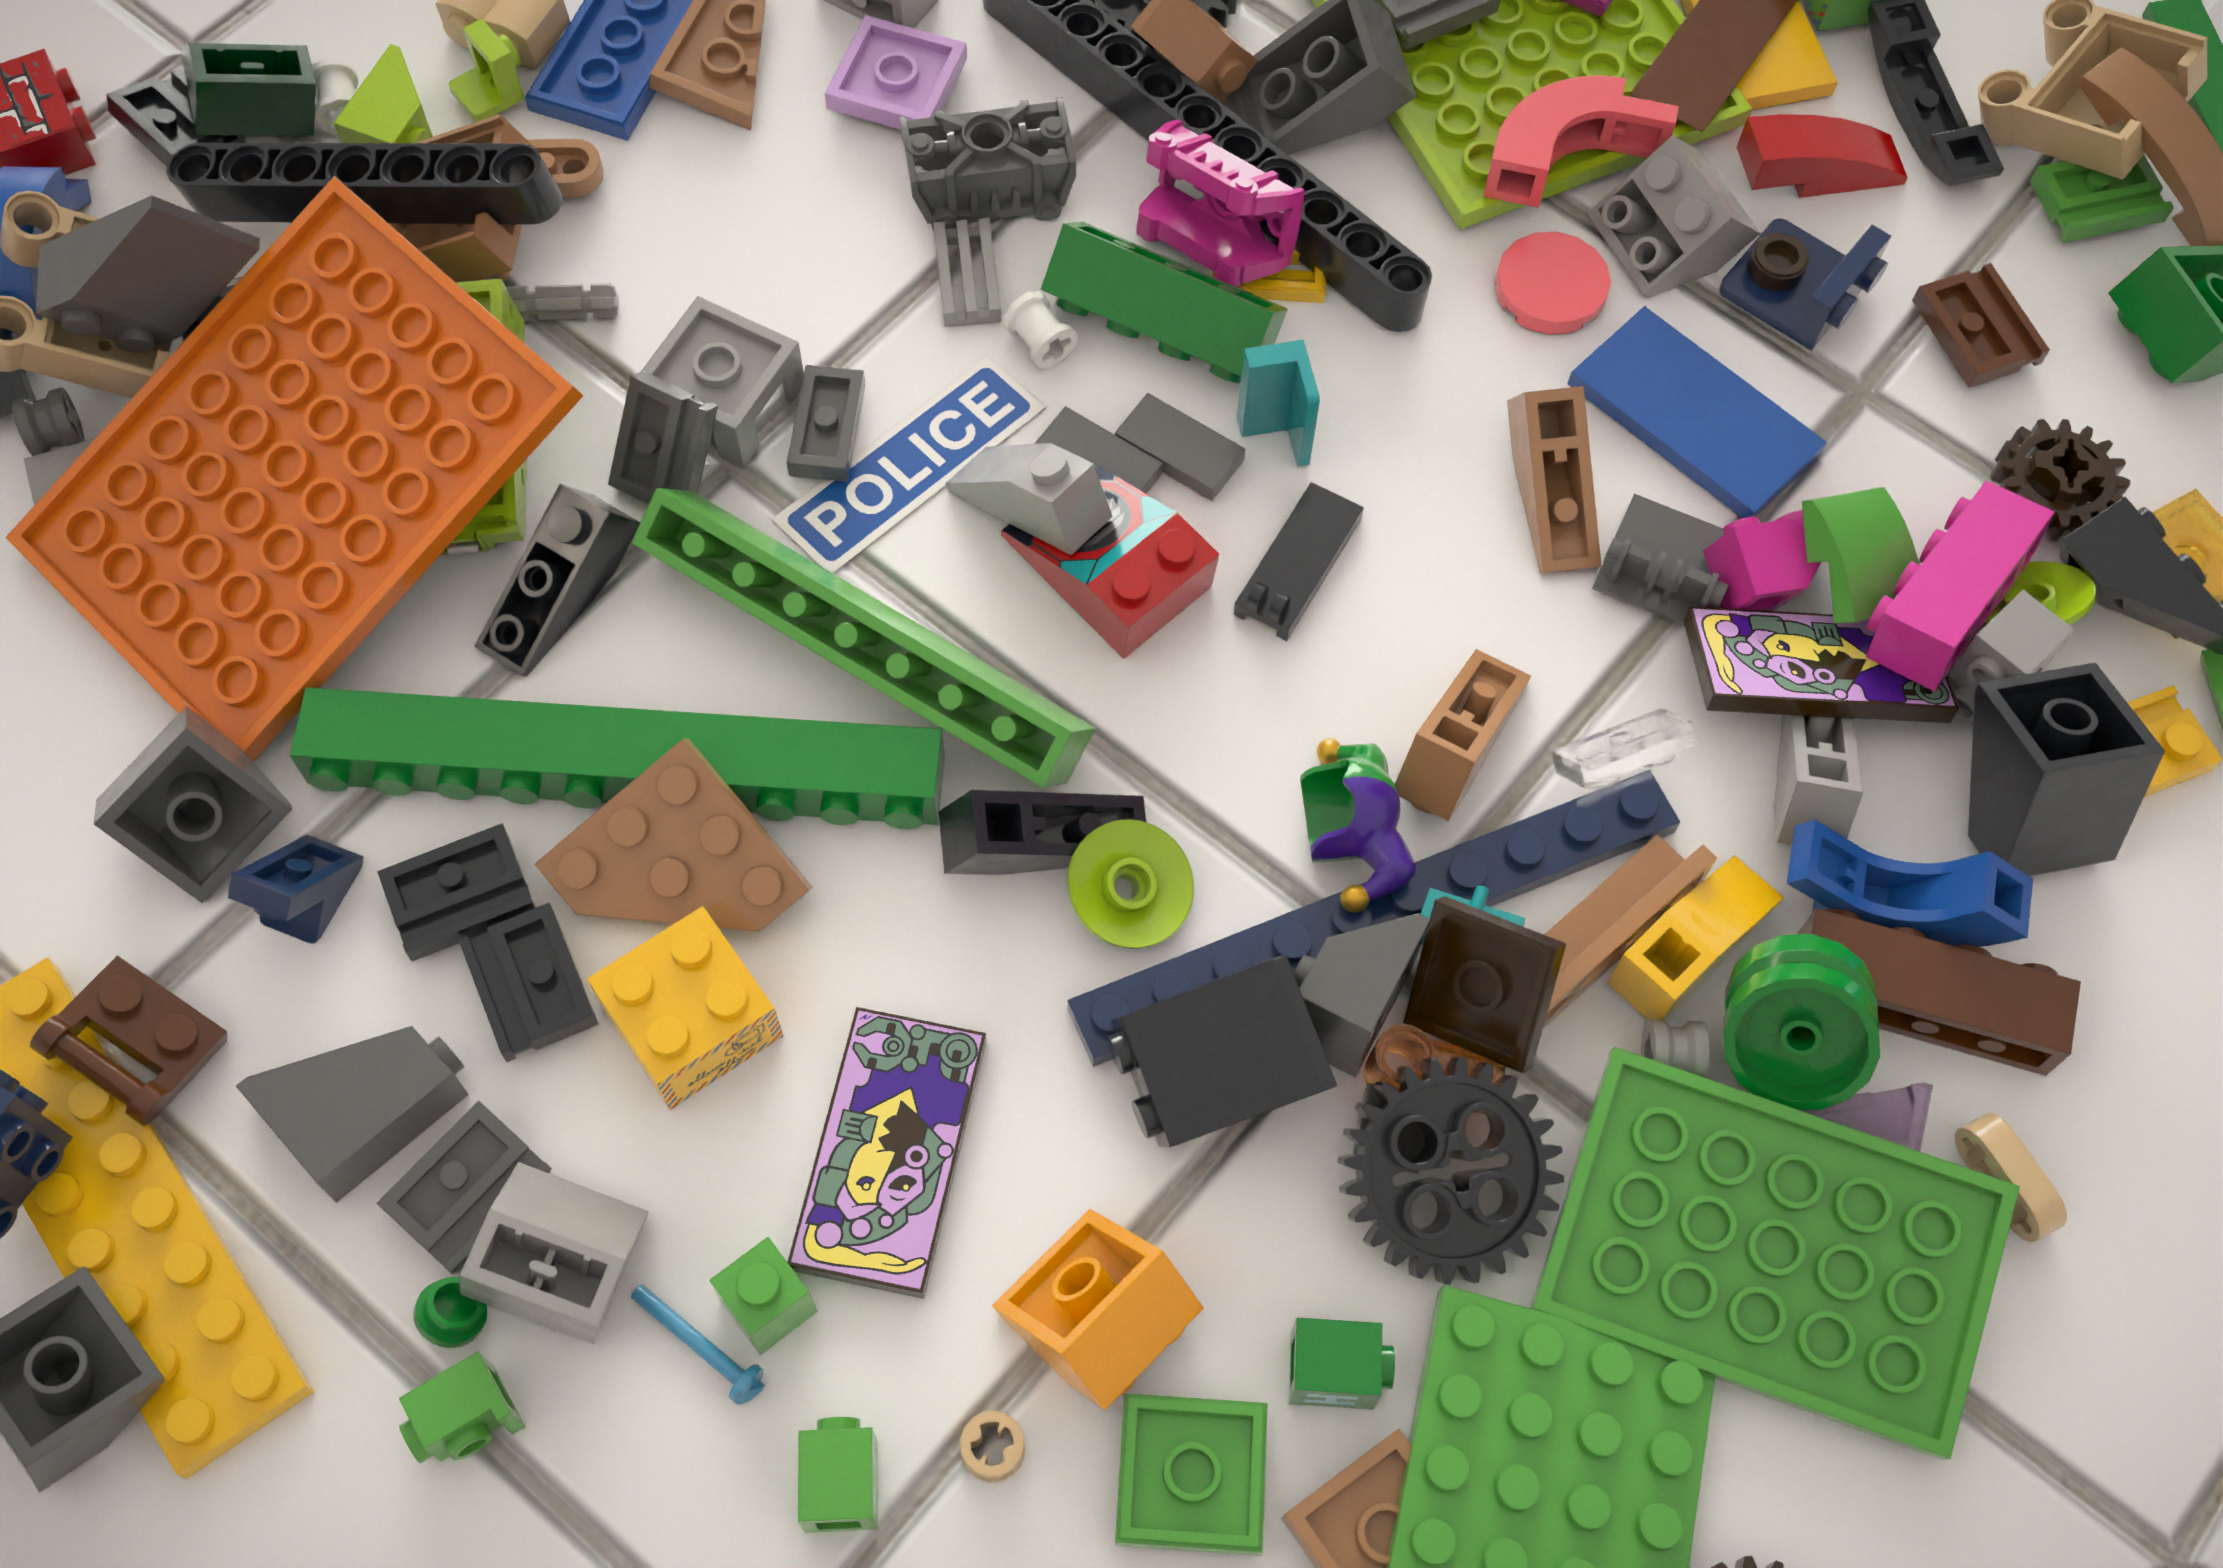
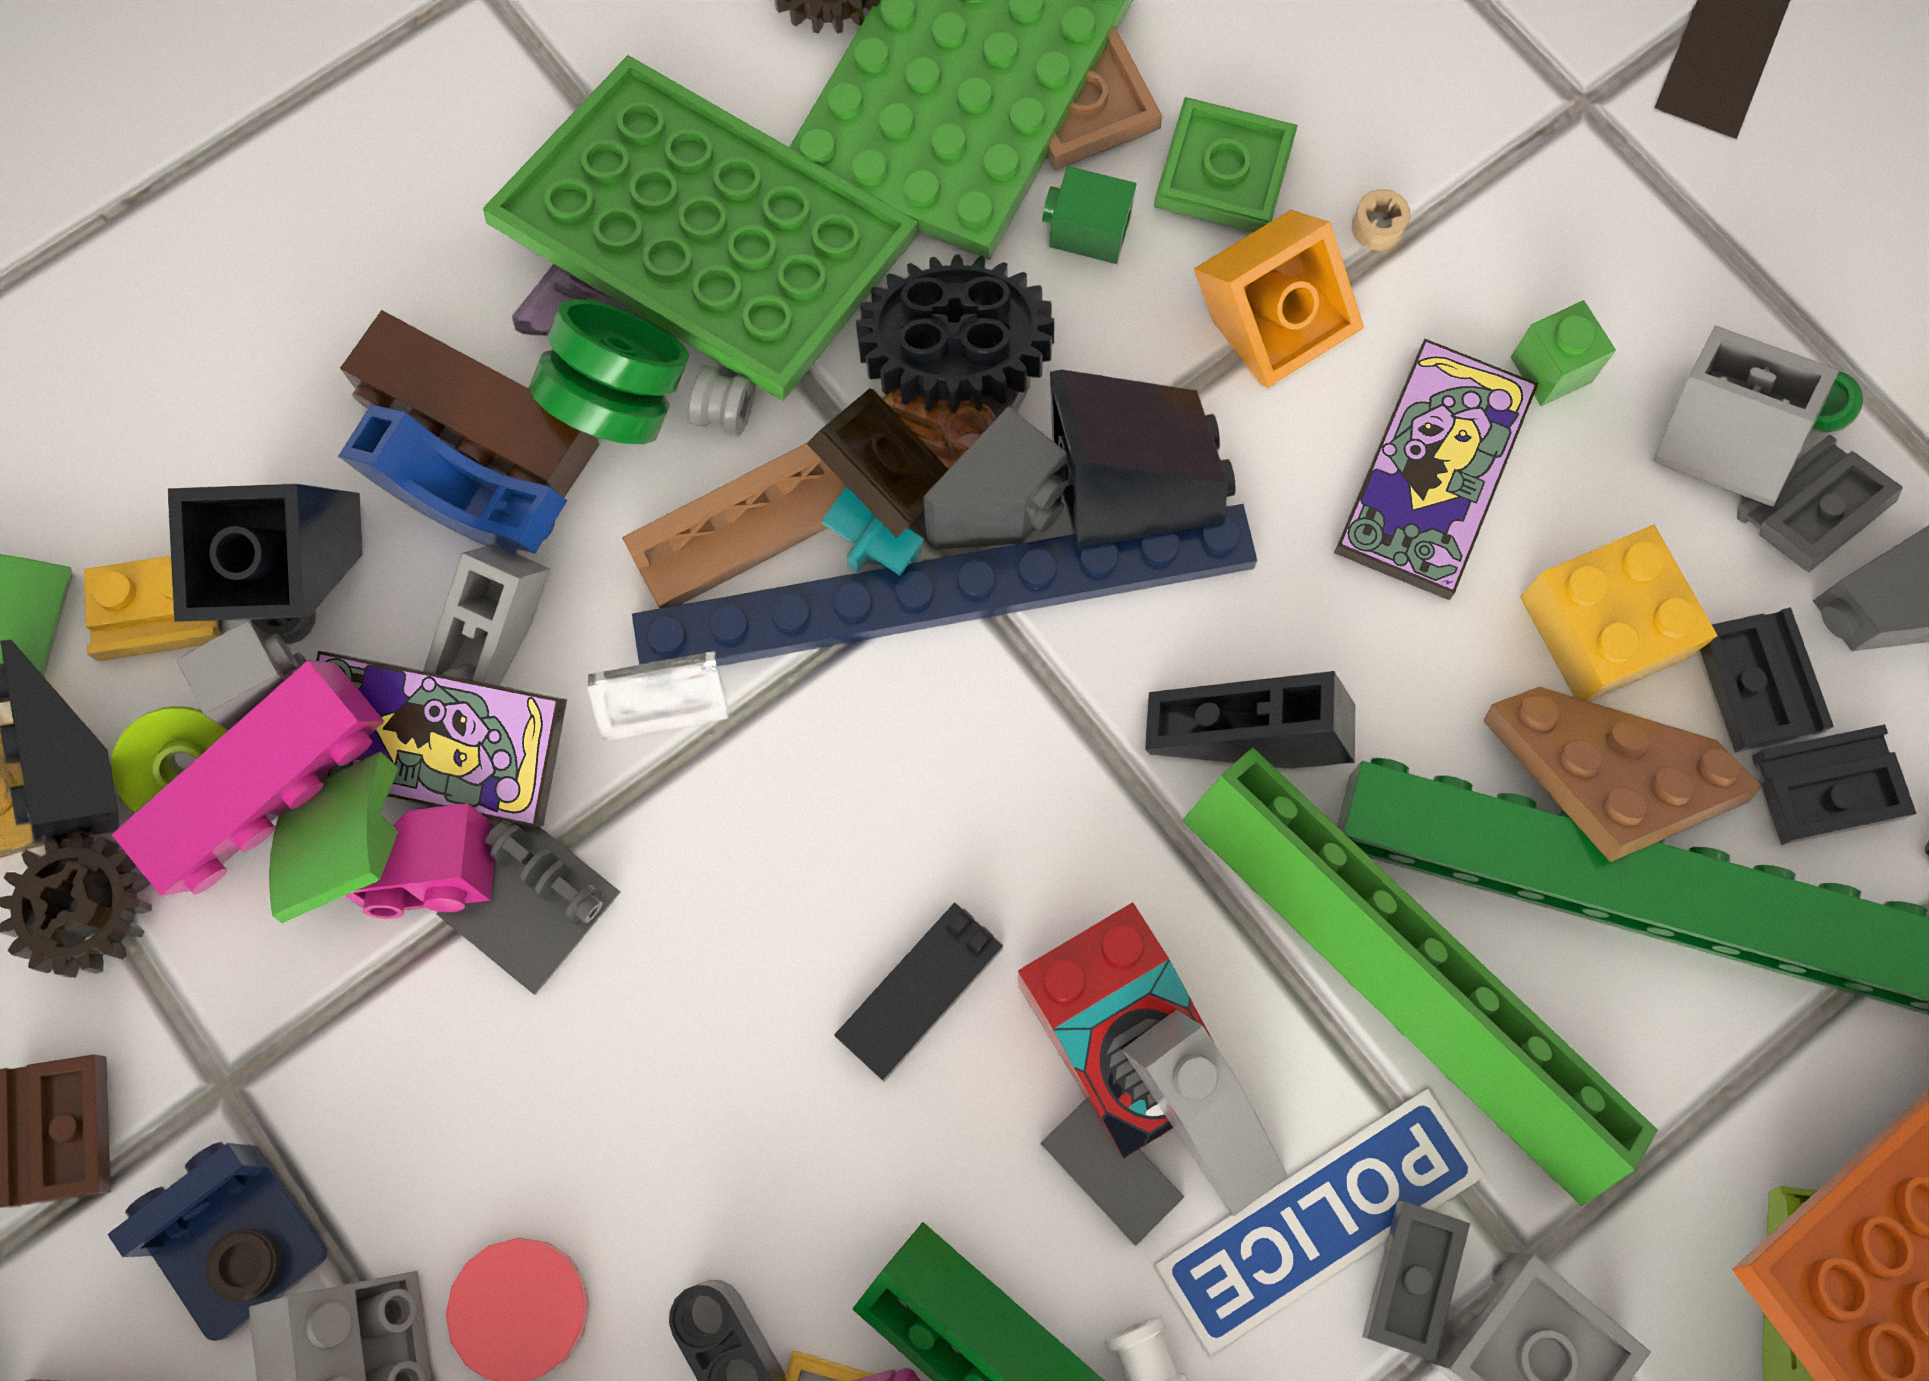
camera: 165 degrees left, 10 degrees up
(457, 1411) = (1819, 317): bright green brick -> none
(556, 577) = (1730, 1133): black slope -> none
(661, 438) = (1621, 1267): dark grey plate -> none
(745, 1382) = (1623, 351): dark azure piece -> none
(837, 1476) = (1511, 210): bright green brick -> none
(1152, 866) = (1175, 630): lime dish -> none
(1185, 446) = (1015, 1167): dark grey tile -> none
(1279, 395) = (892, 1185): teal panel -> none
(1355, 815) = (945, 670): piece -> none
(1460, 734) = (810, 746): medium nougat slope -> none
(1556, 477) = (613, 1028): medium nougat slope -> none
(1693, 939) = (661, 480): yellow slope -> none
(1697, 413) = (424, 1090): blue tile -> none
(1996, 1150) = (477, 247): tan beam -> none

